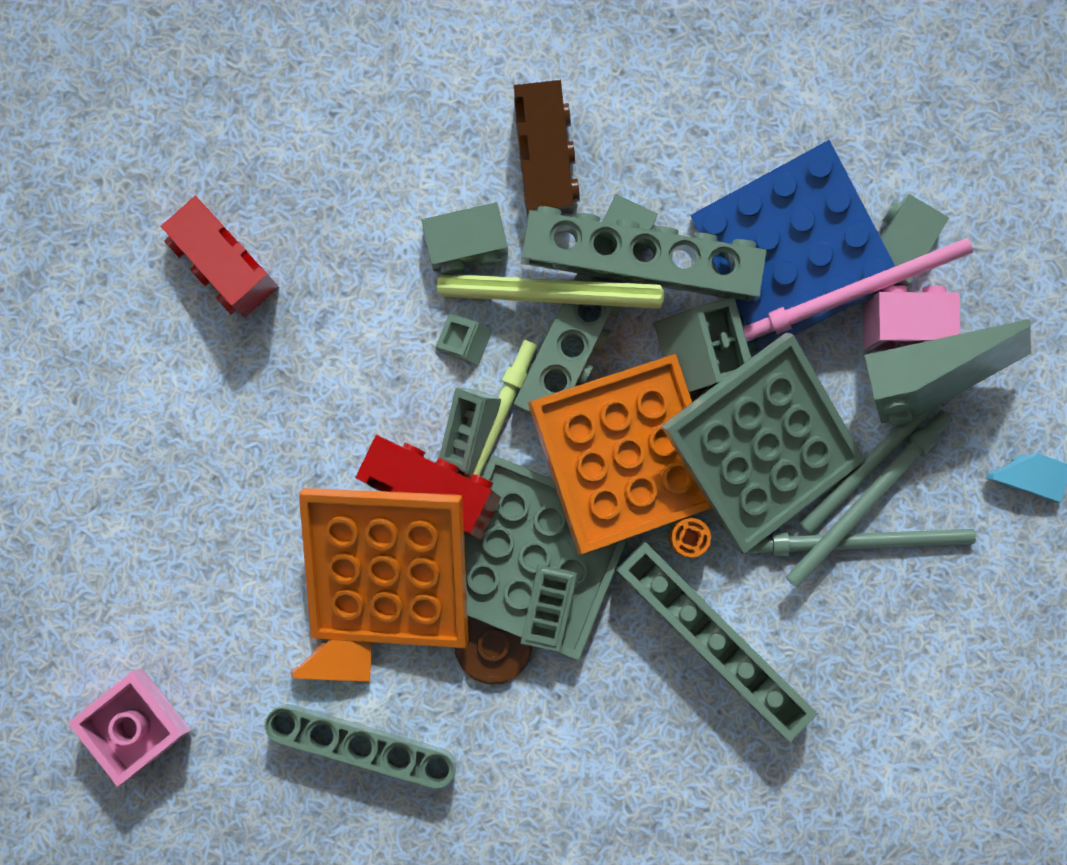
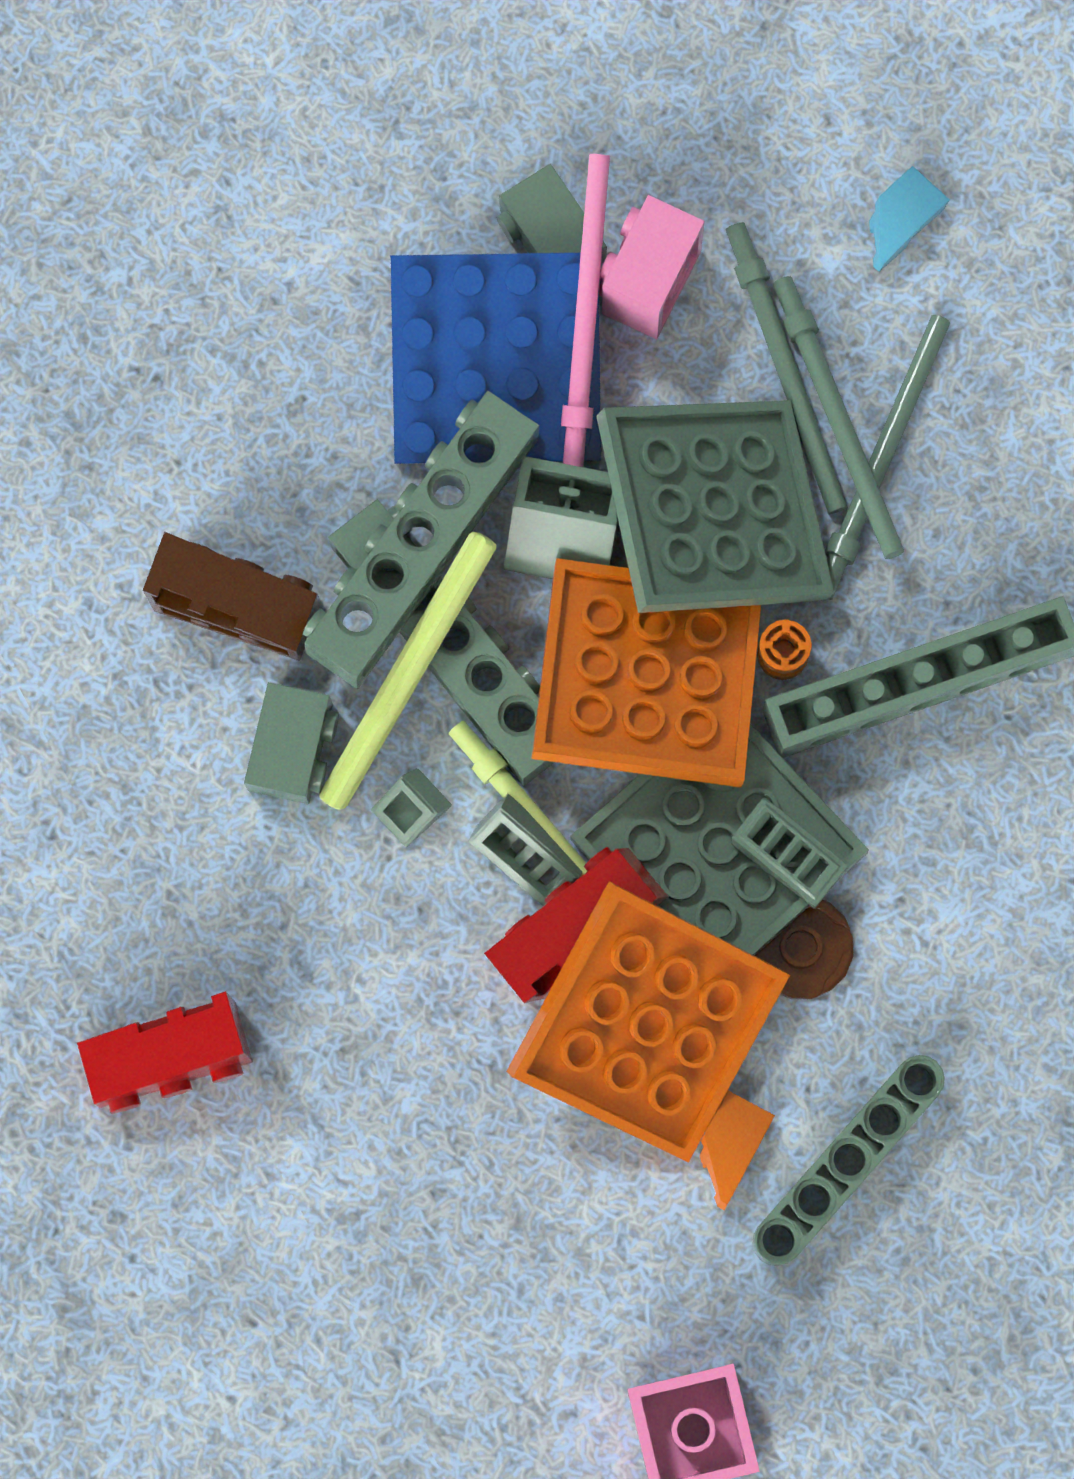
camera: 55 degrees left, 5 degrees down
(928, 373) = (724, 279): sand green slope -> none

